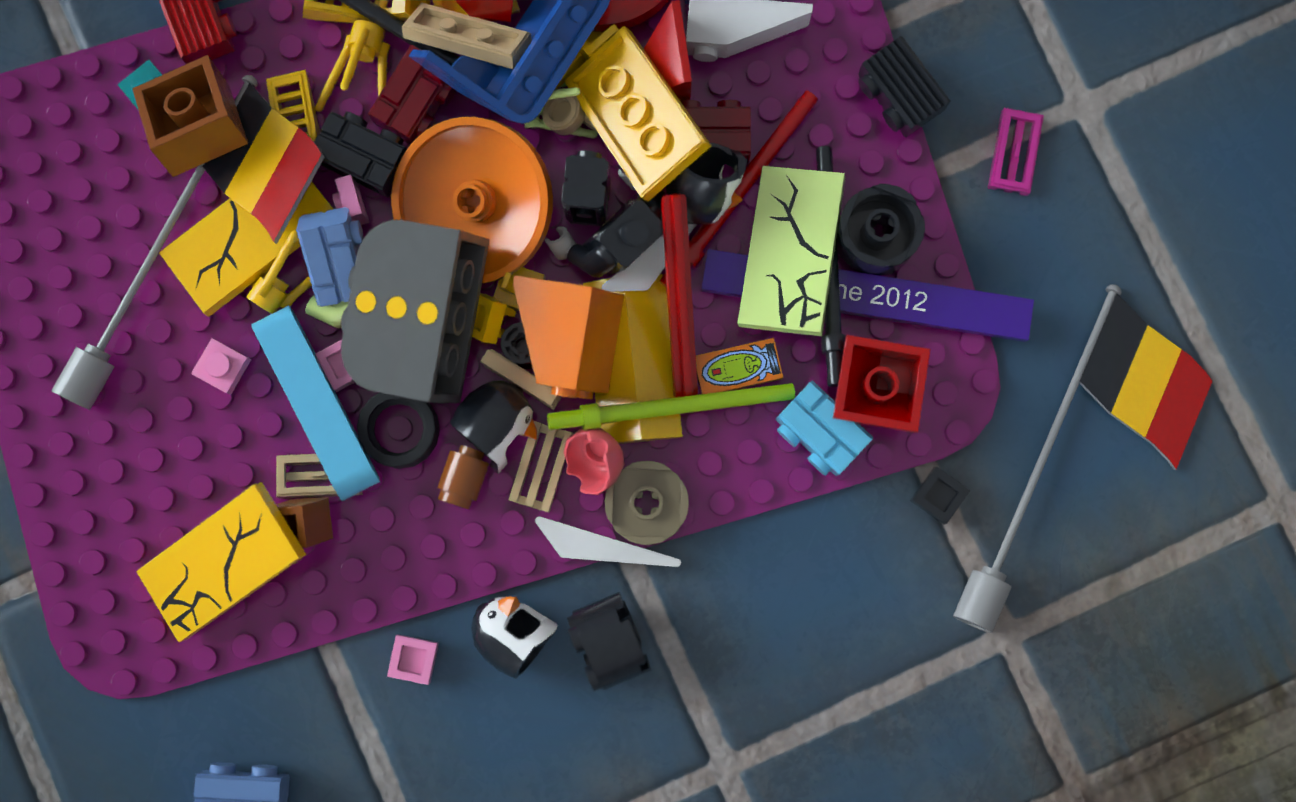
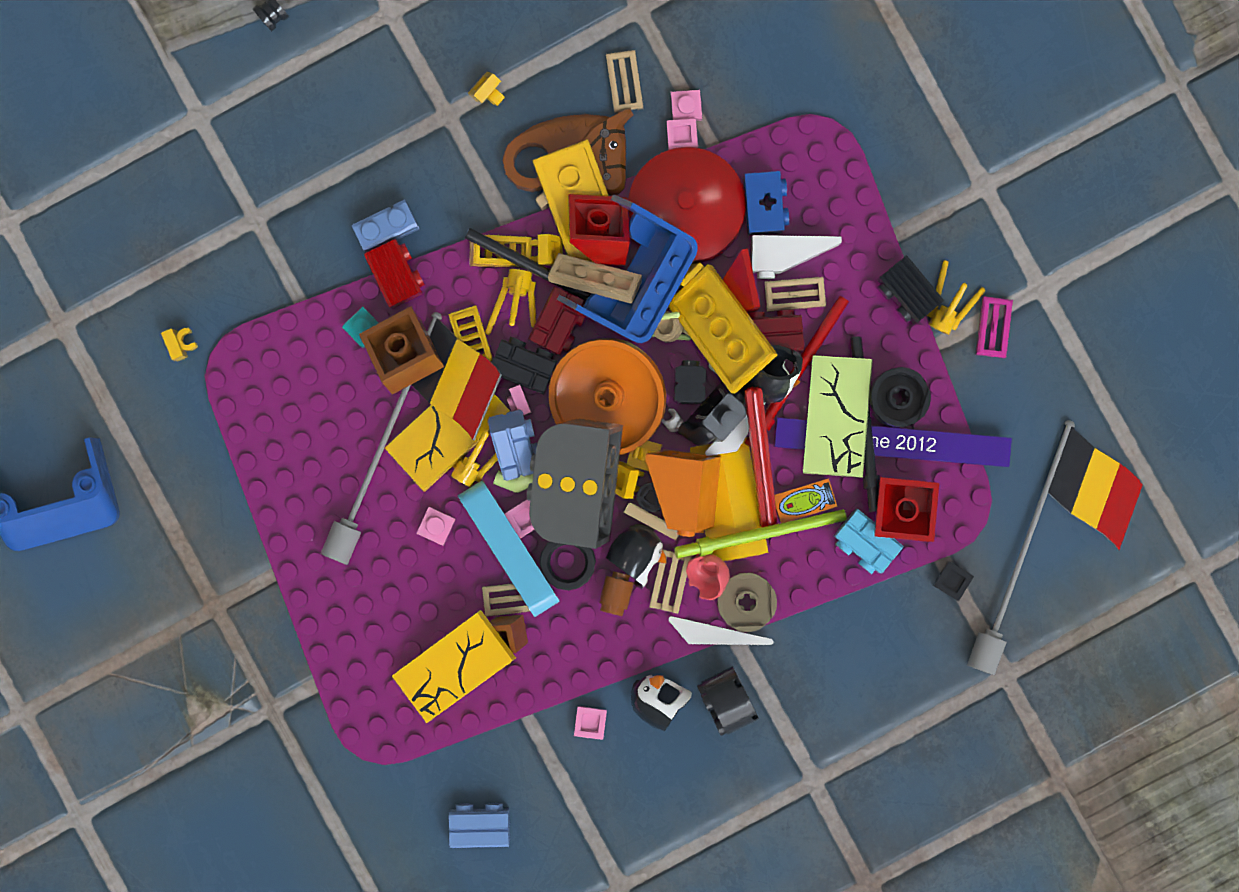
camera: 10 degrees left, 5 degrees up
(745, 69) = (795, 282): none -> tan tile
(948, 133) = (944, 318): none -> yellow plant

